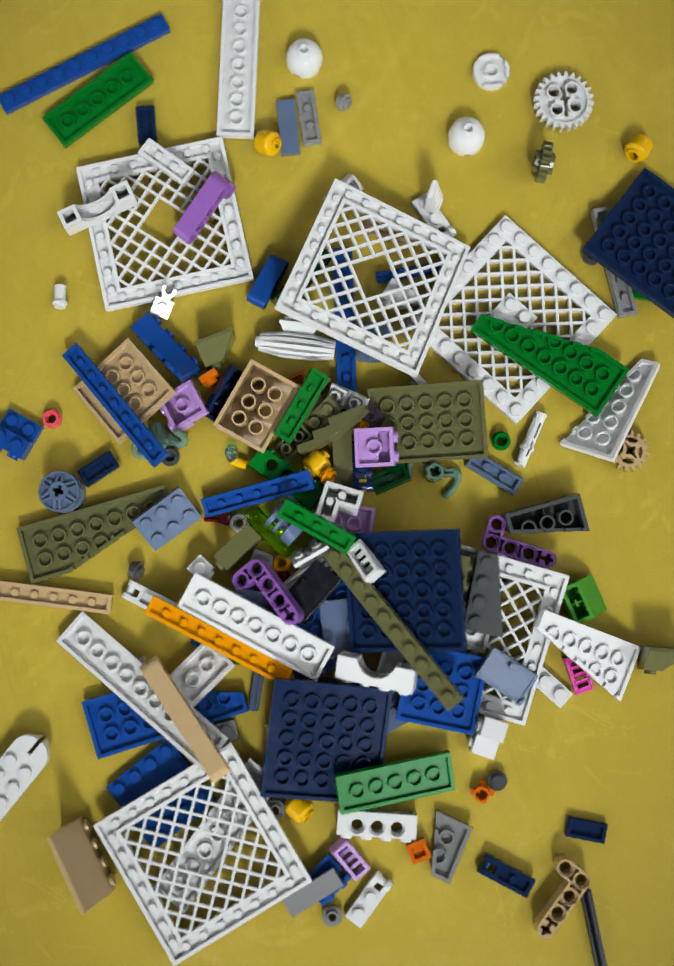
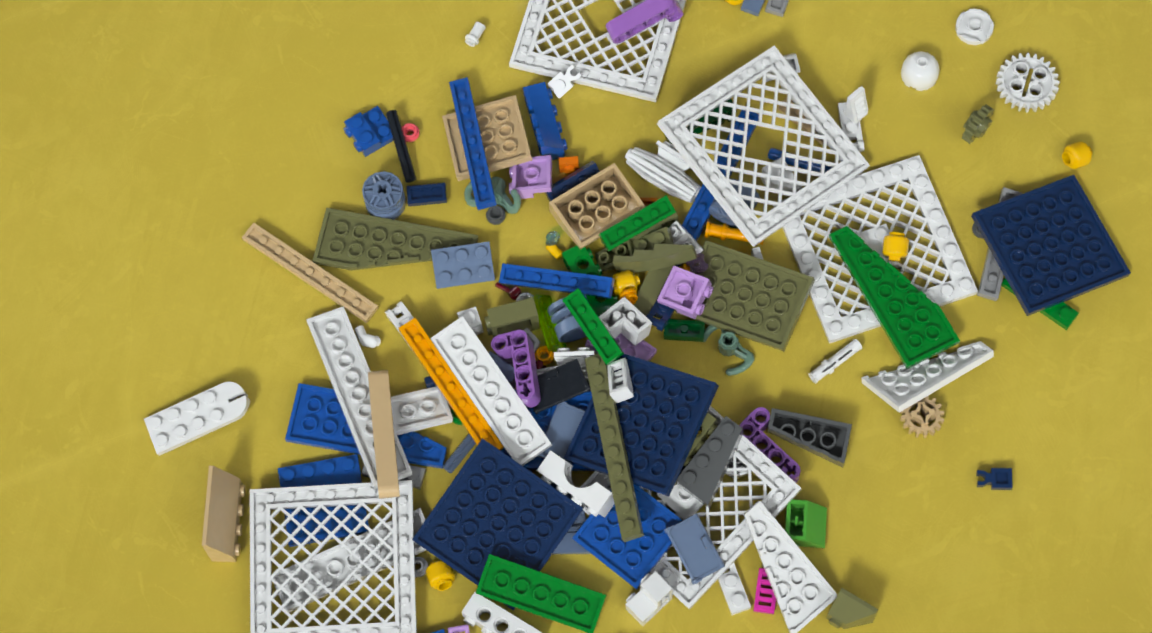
camera: 35 degrees right, 15 degrees down
(51, 436) = (401, 146): none -> black axle
(118, 630) = (365, 339): none -> white arm
(136, 570) = (410, 296): dark grey plate -> none
(216, 348) = (589, 140): olive slope -> none
(267, 281) = (664, 106): blue beam -> none
(374, 371) = (724, 232): none -> light orange pin
(495, 474) = (785, 375): sand blue tile -> none
(505, 437) = (806, 344): green plate -> none
(532, 311) = (895, 246): none -> yellow head

